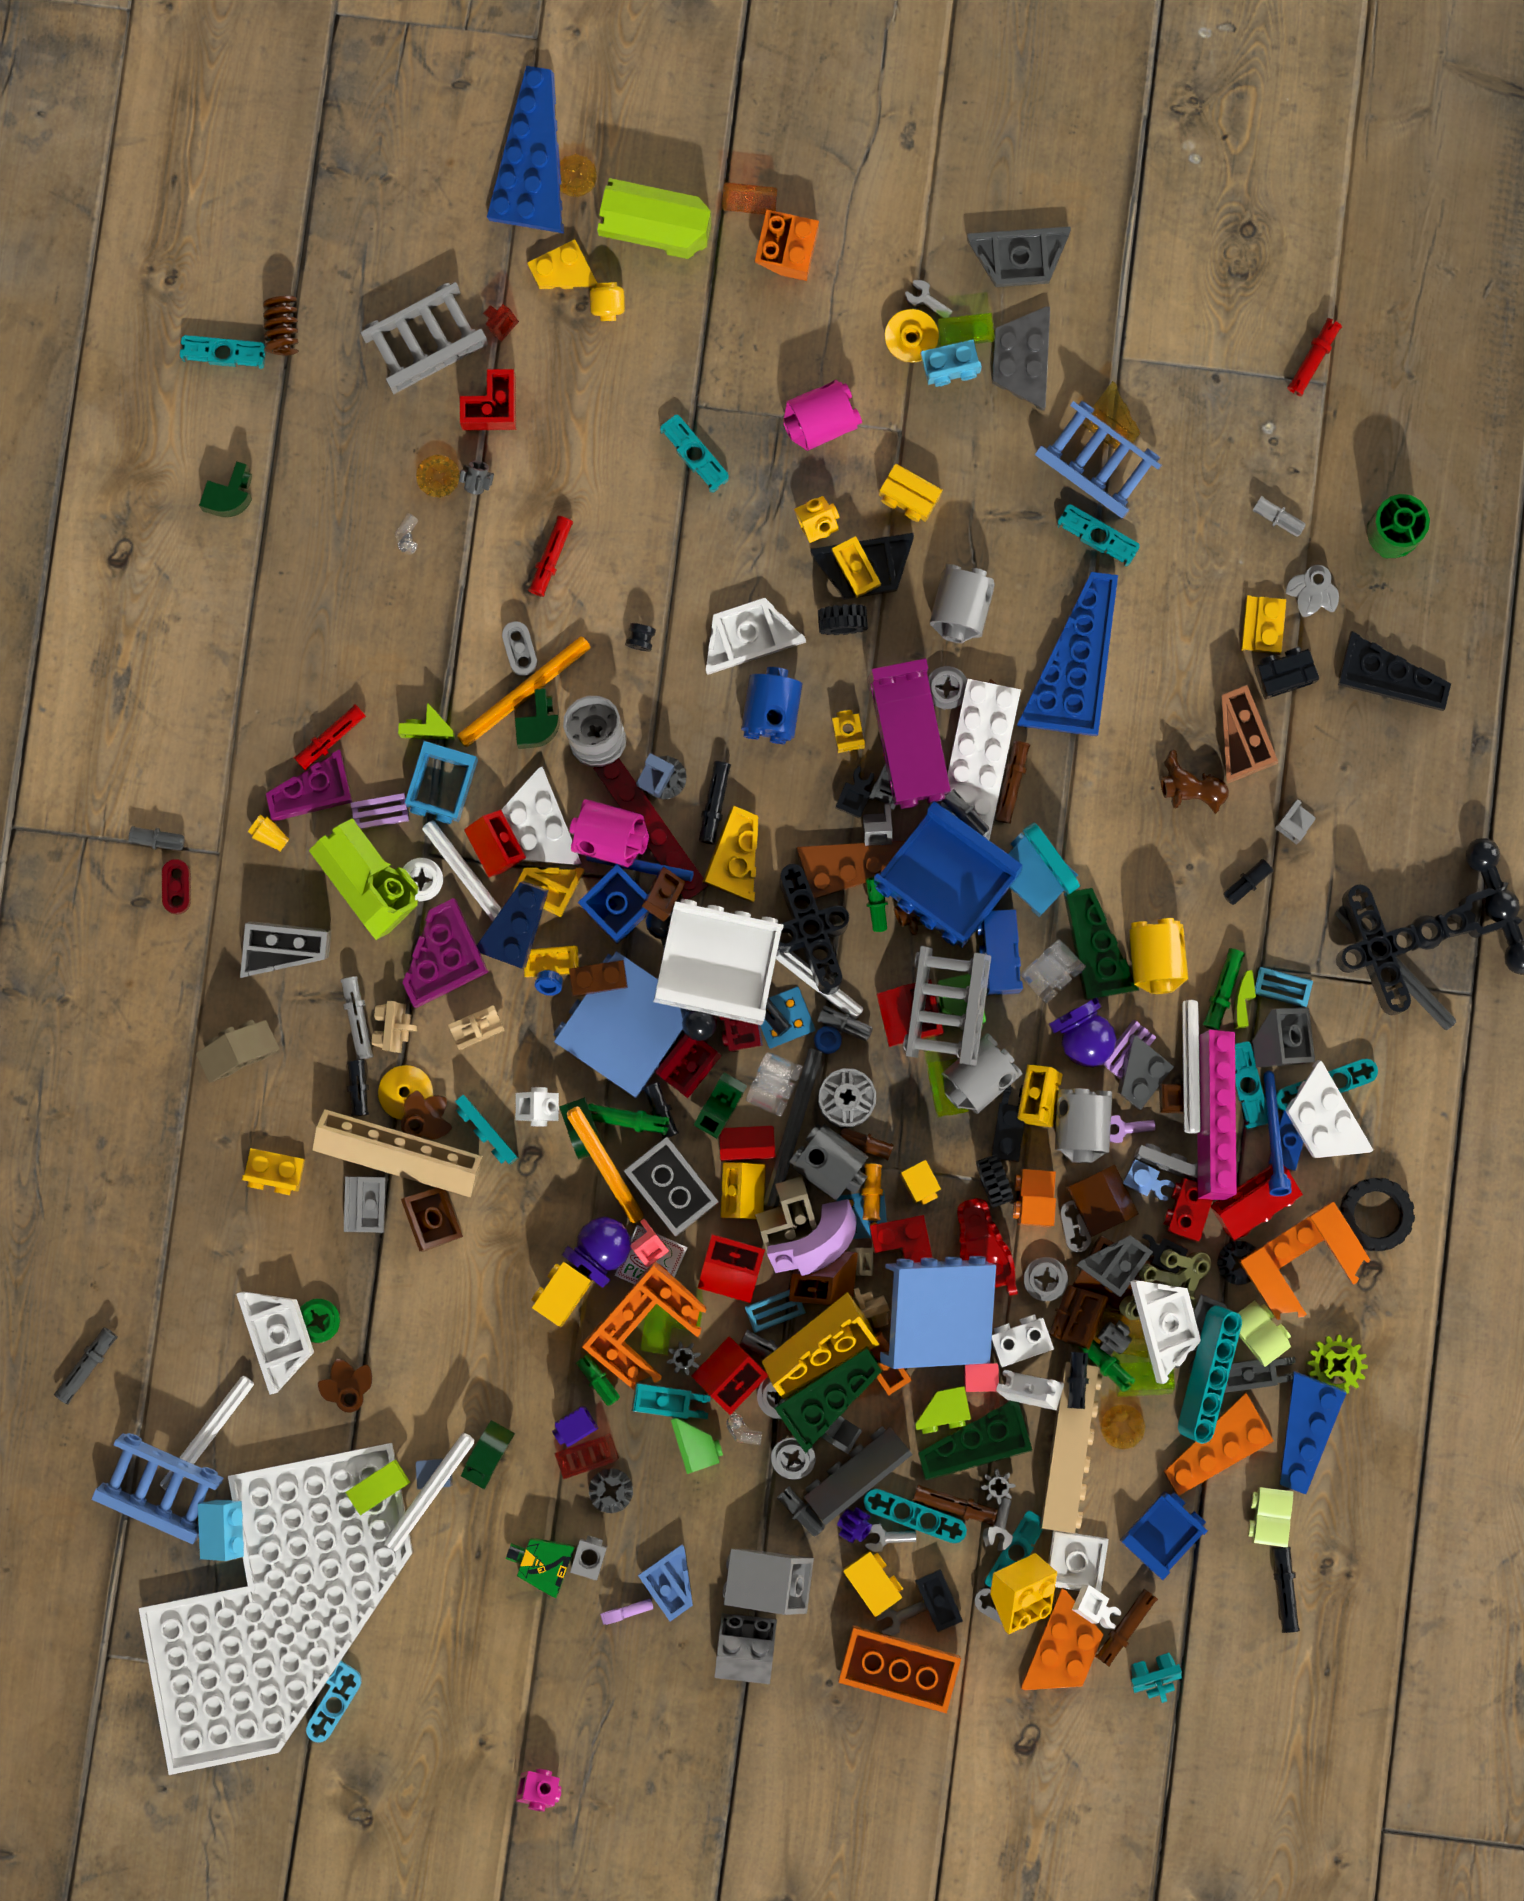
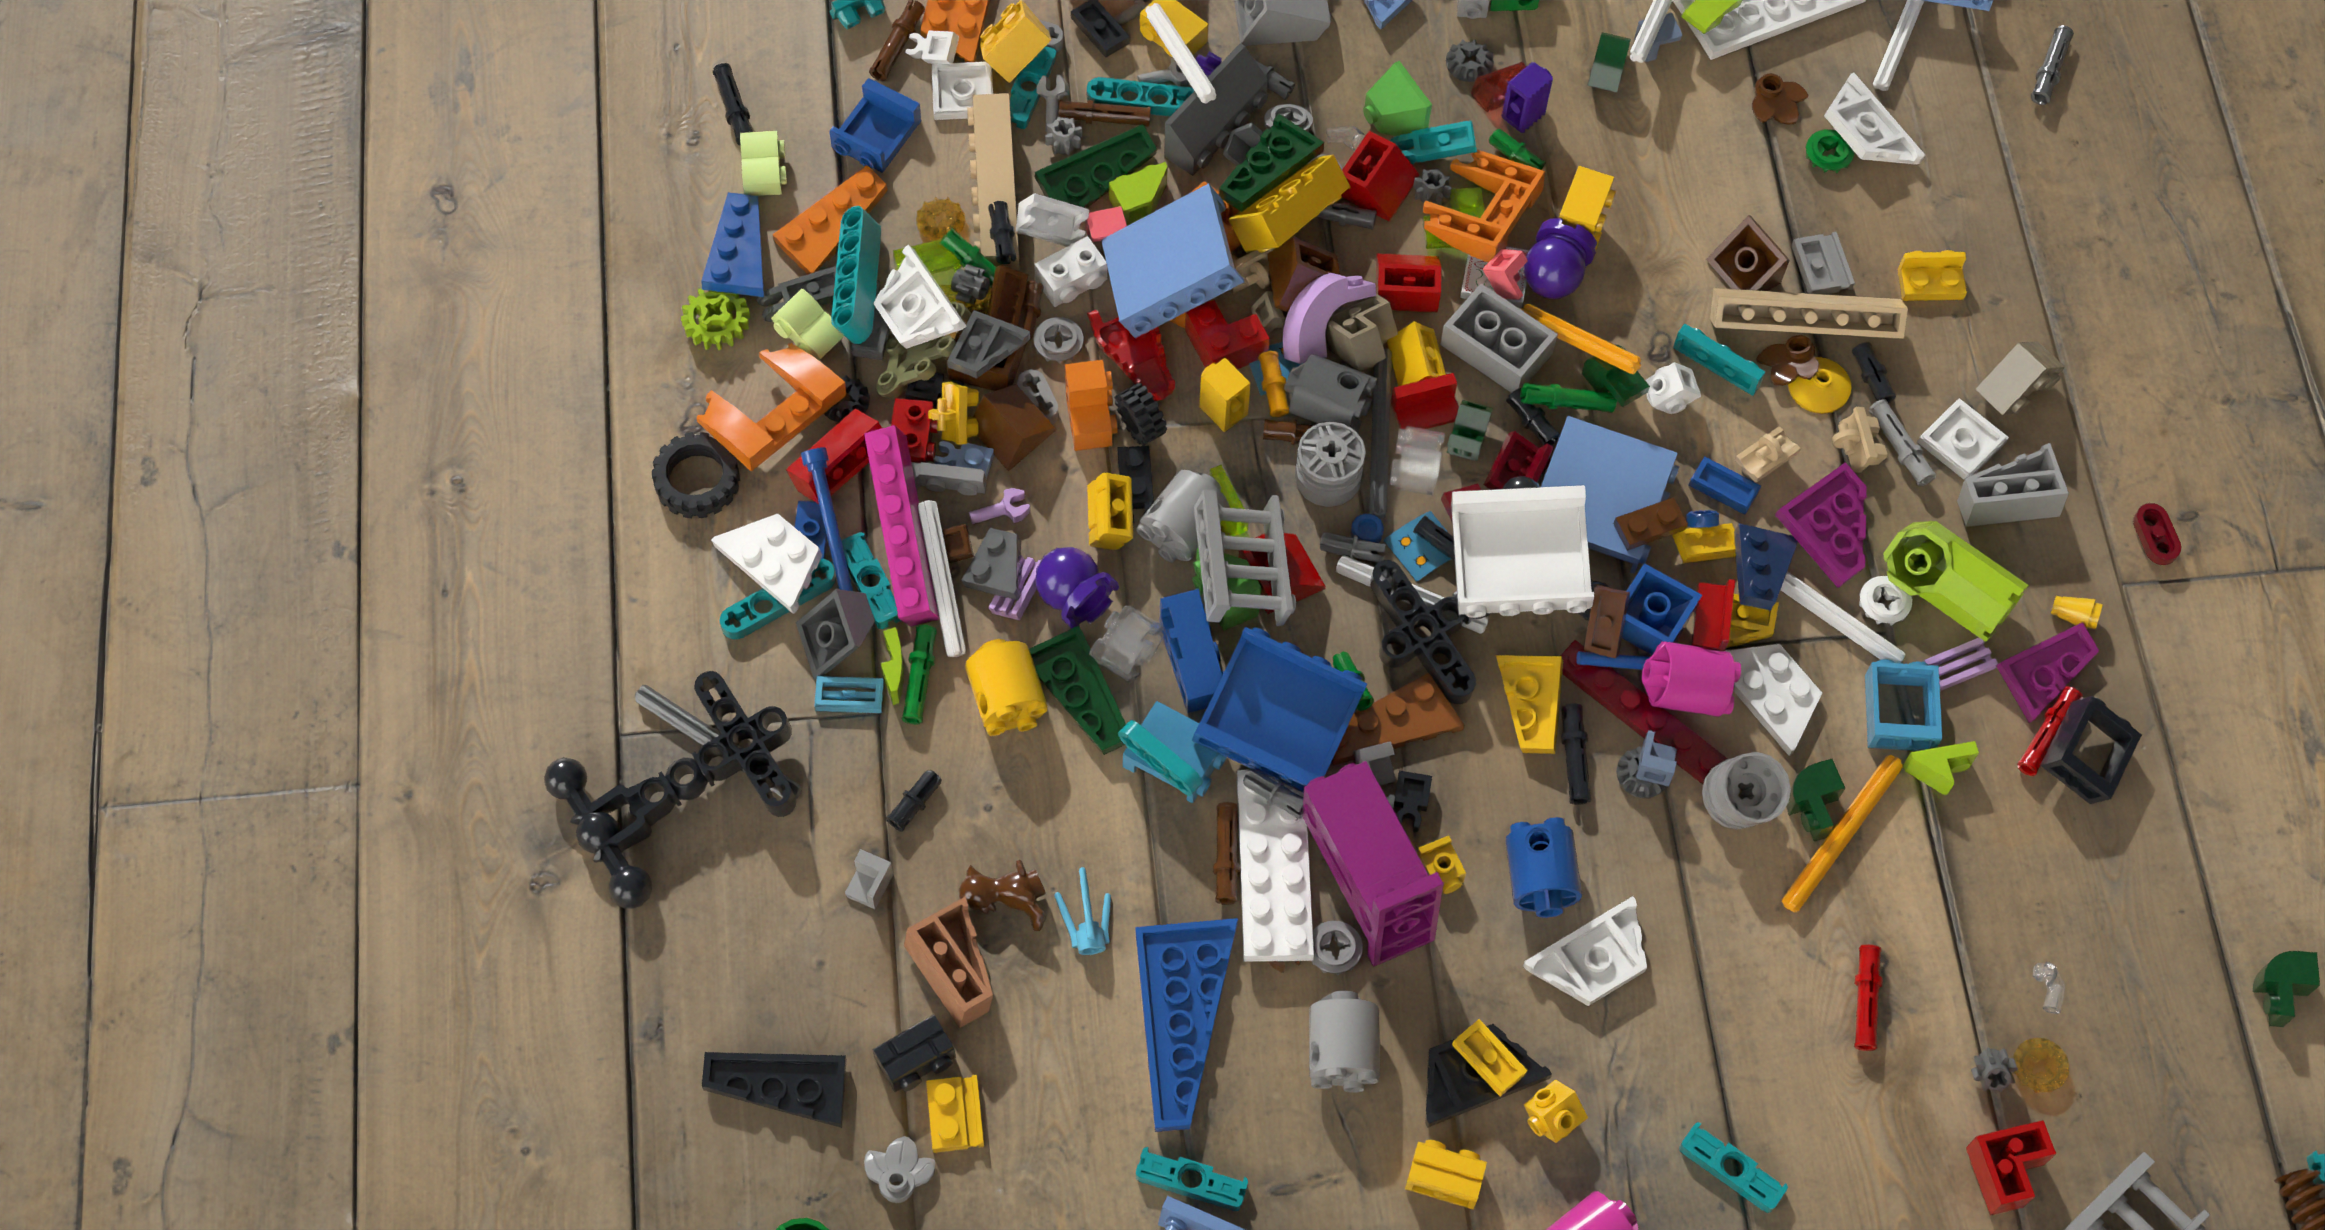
camera: 165 degrees right, 20 degrees down
(156, 838) = (2201, 580): dark grey axle -> none
(303, 1012) = (1962, 439): none -> white tile
(320, 721) = (2075, 773): none -> black window
(494, 843) = (1817, 648): red brick -> none
(518, 1014) = (1724, 485): none -> blue tile
(519, 649) = (1869, 879): light grey plate -> none
(571, 889) = (1713, 616): none -> red panel
(640, 637) = (1726, 922): black wheel -> none
(753, 1318) = (1360, 260): medium azure tile -> none
(842, 619) = (1487, 991): black tyre -> none
(881, 1528) = (1180, 53): none -> white axle
(1083, 1124) = (1054, 491): light grey cylinder -> none
(1133, 737) = (1090, 937): none -> medium azure plant
(1151, 1216) = (952, 413): none -> yellow hips

